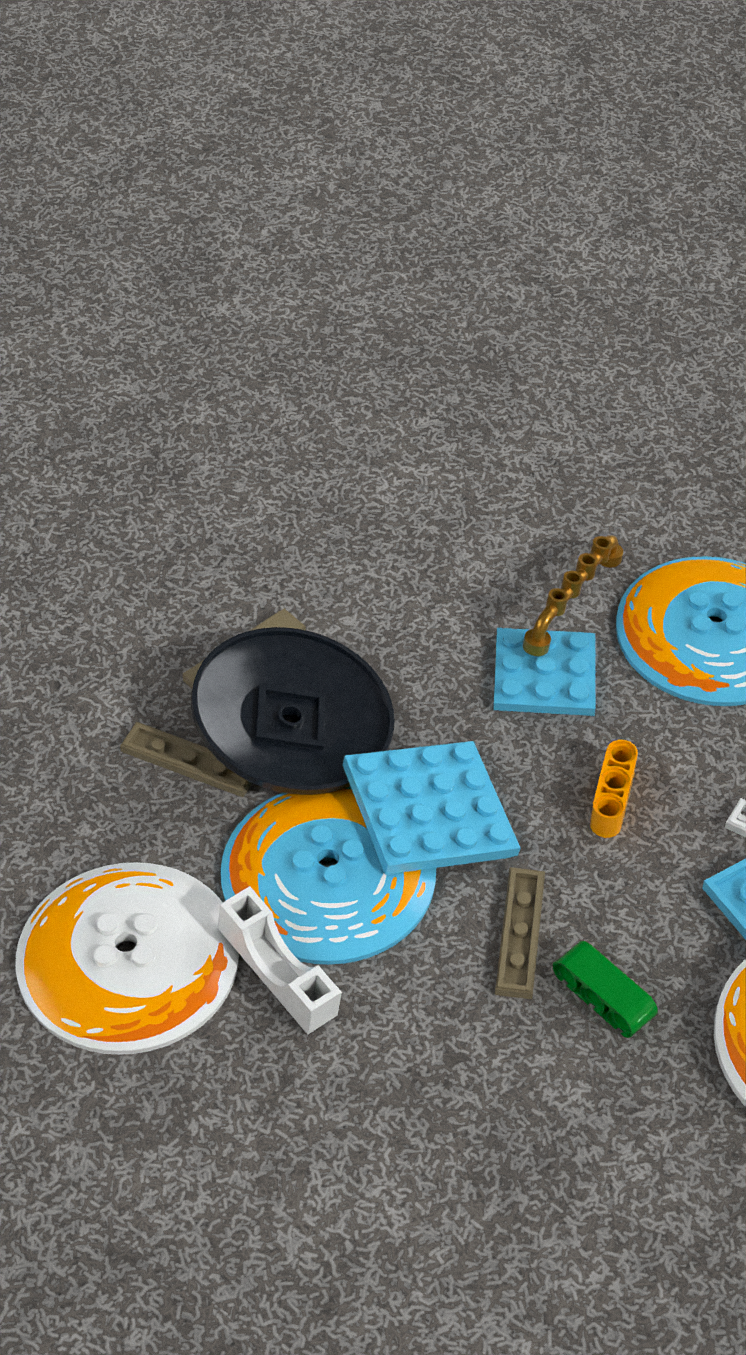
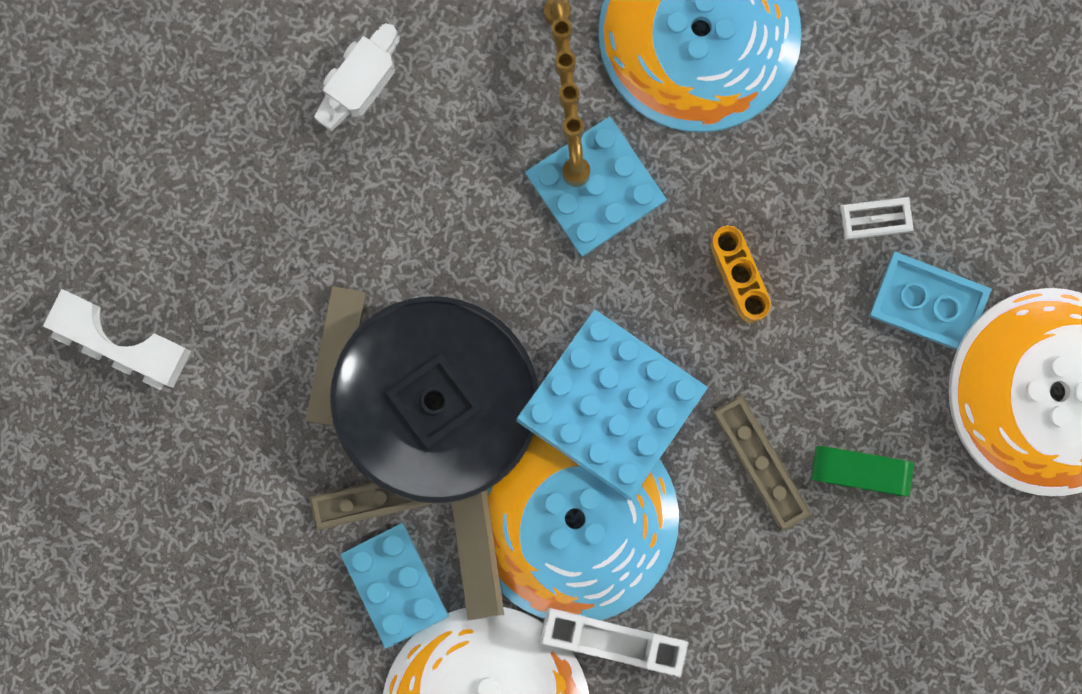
camera: 30 degrees left, 35 degrees up
(112, 569) = (80, 321): none -> white arch
(142, 819) = (394, 585): none -> medium azure plate
(227, 834) = (477, 557): none -> dark tan tile
(424, 504) = (359, 77): none -> white hinge

